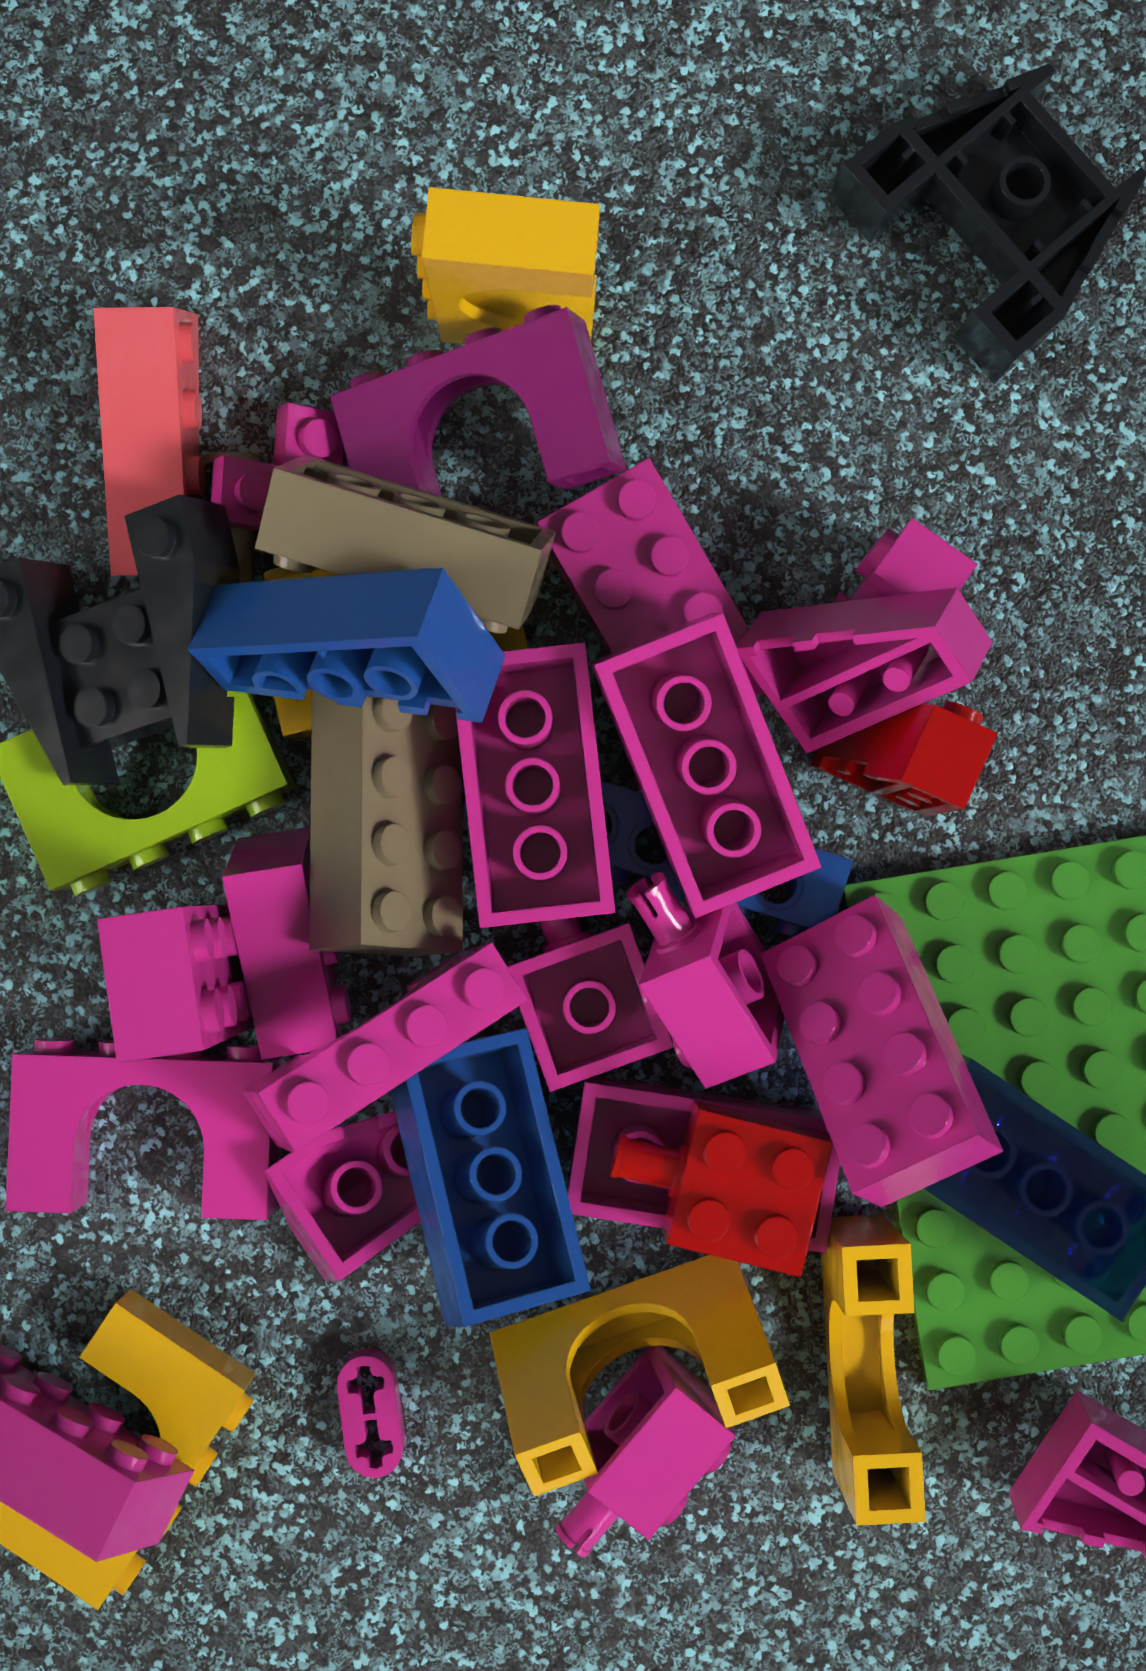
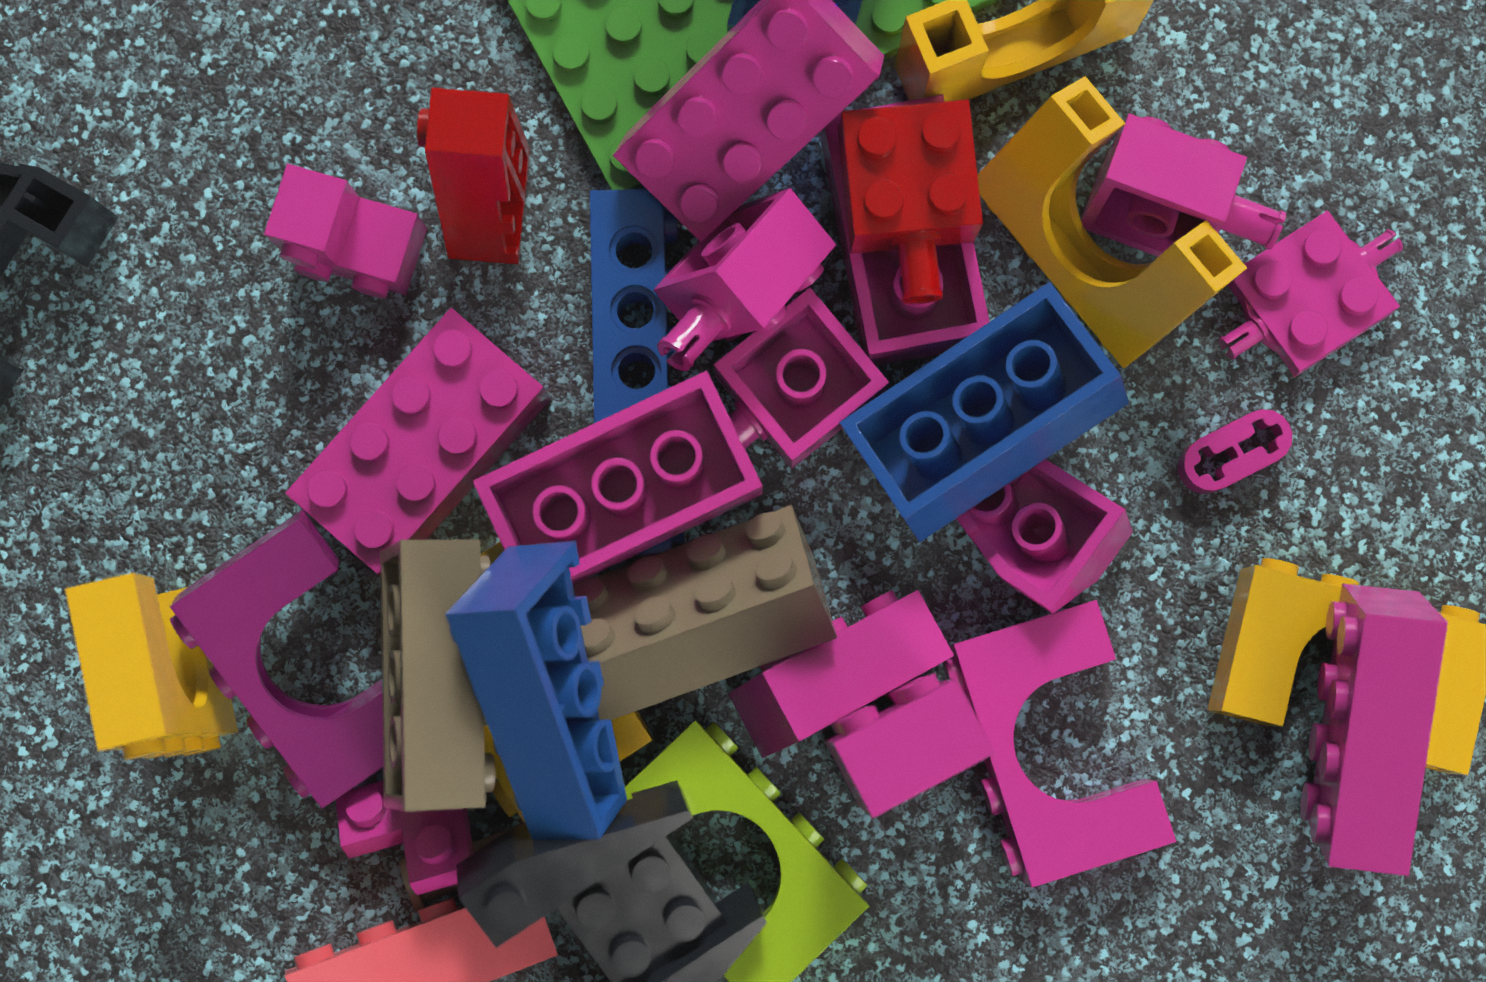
camera: 100 degrees left, 5 degrees down
(359, 1067) = (847, 499): dark pink arch -> none
(500, 1553) = (1311, 294): none -> dark pink plate
(705, 764) = (545, 340): dark pink brick -> none
(862, 659) = (407, 234): dark pink wedge -> none

